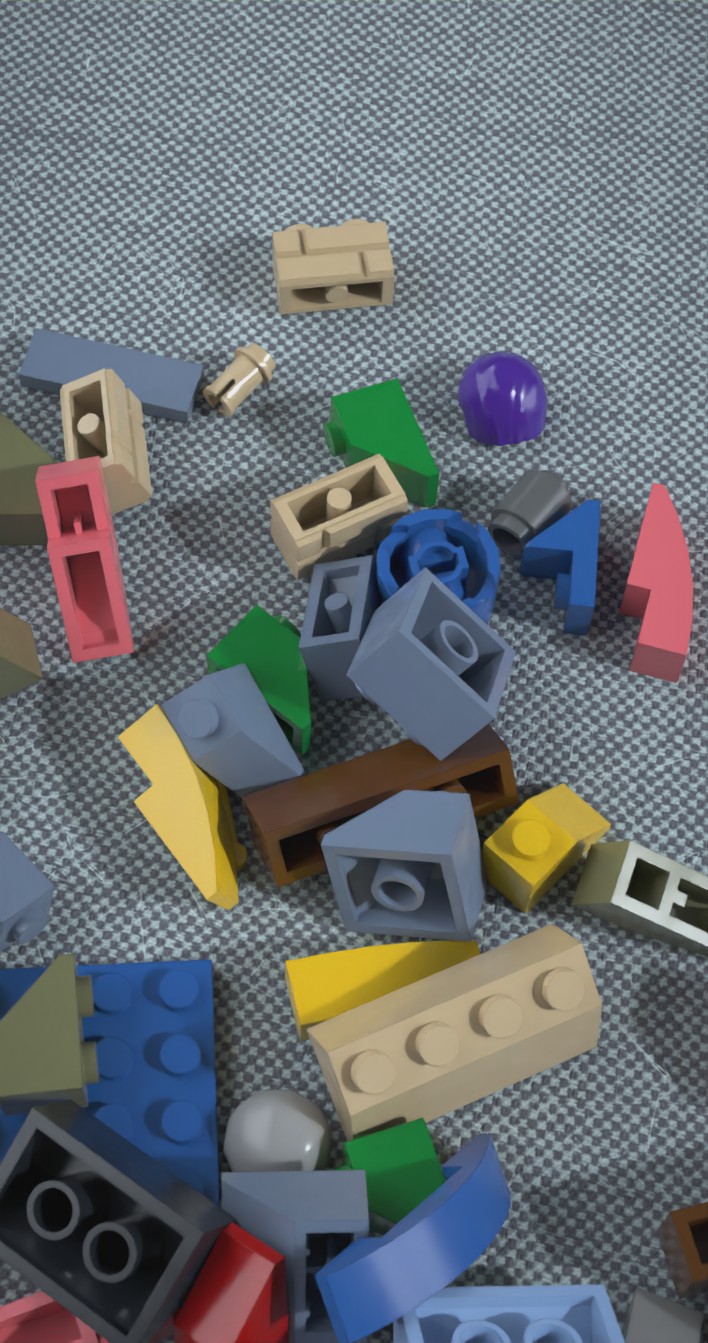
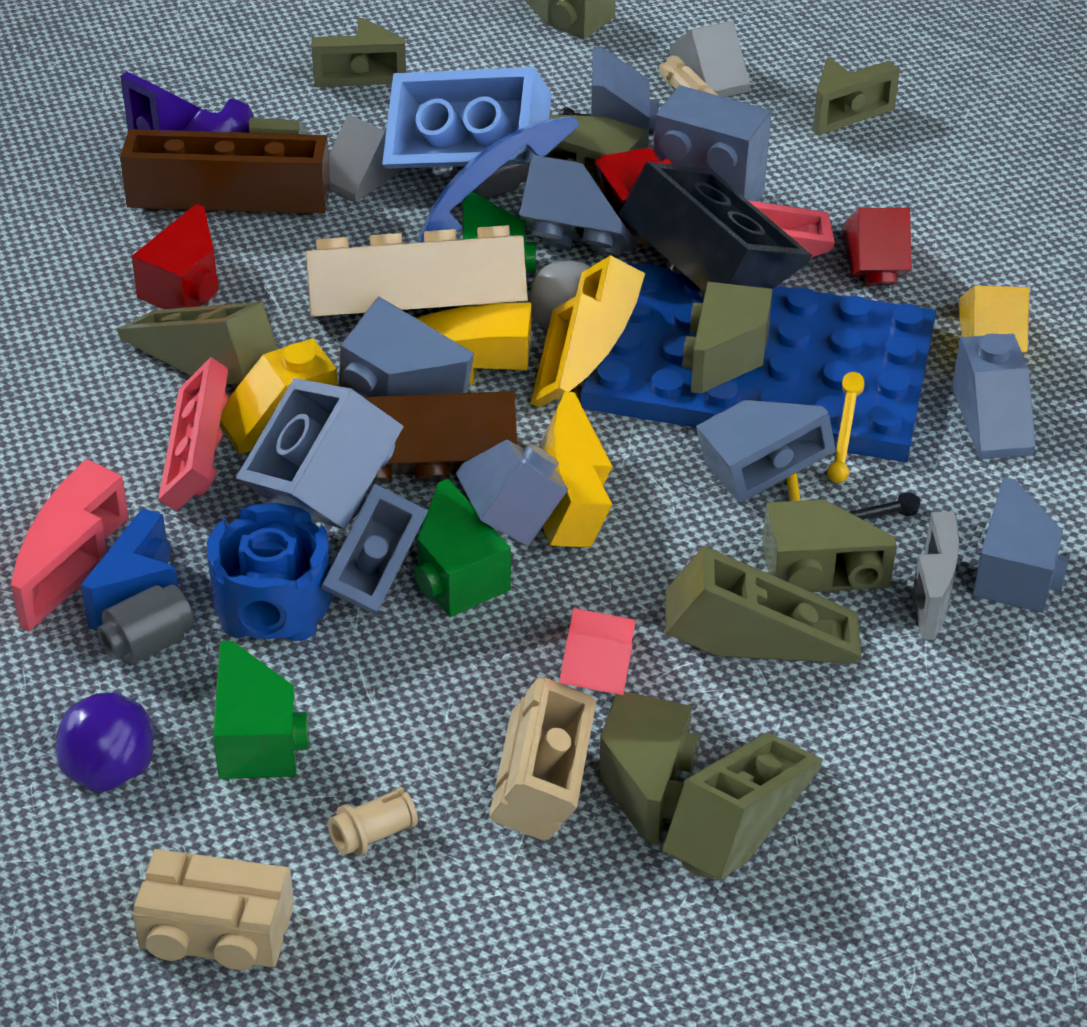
camera: 160 degrees left, 20 degrees down
(161, 383) = (511, 870): sand blue tile -> none
(226, 1034) = (586, 327): none -> yellow slope
(337, 515) = (337, 639): tan brick -> none
(609, 761) = (194, 435): none -> coral plate

